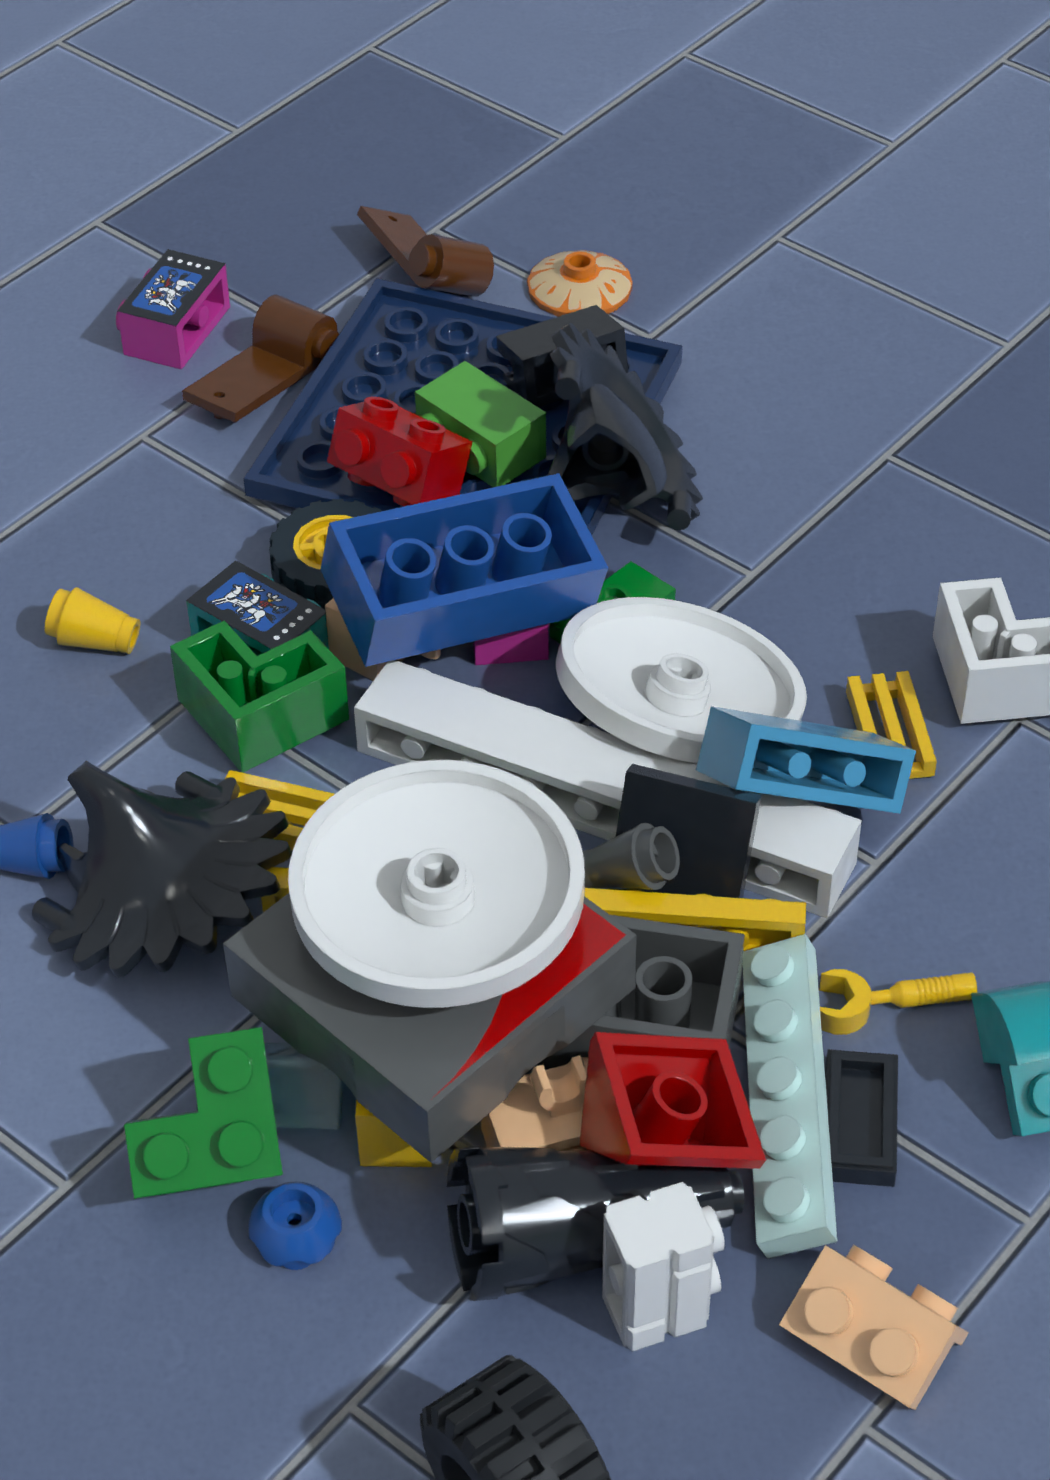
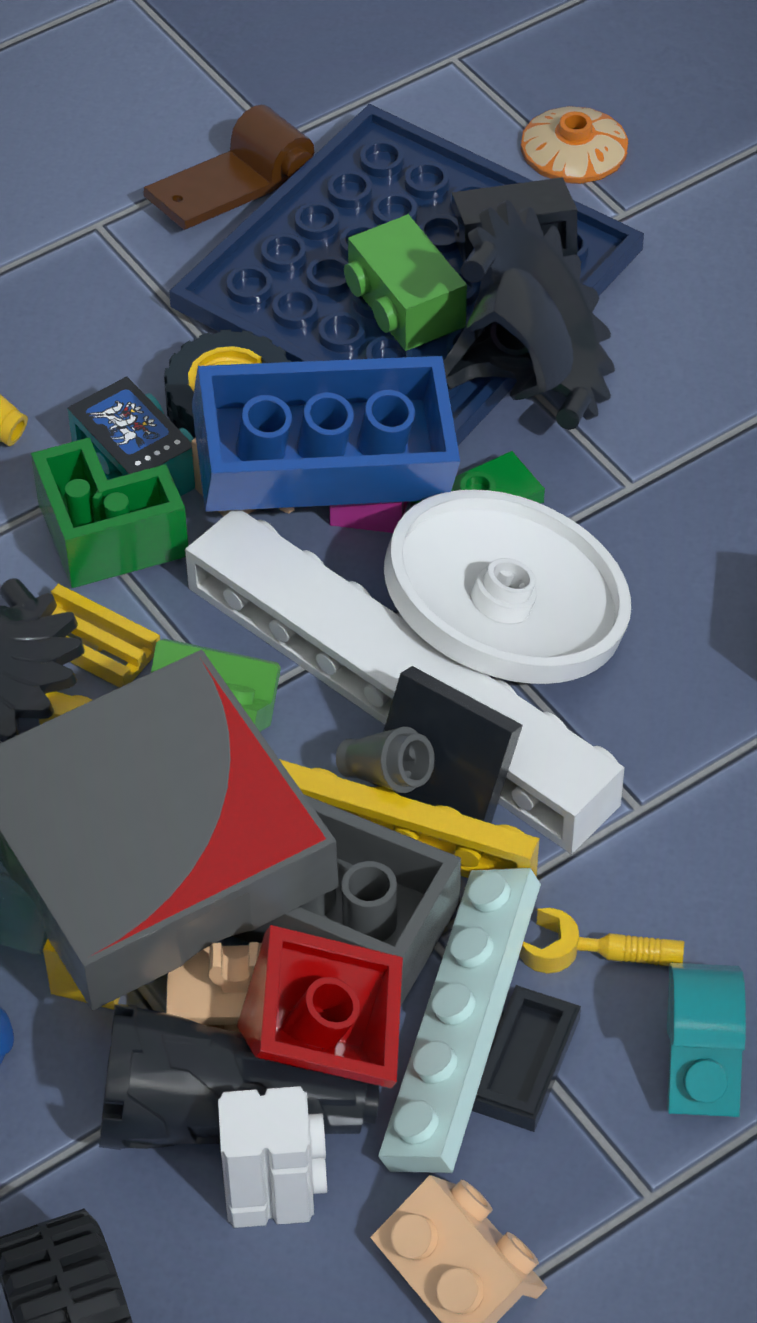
camera: 15 degrees right, 5 degrees up
(173, 309) = (165, 99): brick -> none
(398, 451) = (315, 296): red brick -> none
(431, 259) = (425, 90): reddish brown door -> none
(437, 883) = (157, 752): white dish -> none
(805, 760) = (587, 696): dark azure brick -> none
(883, 693) = (707, 635): yellow tile -> none

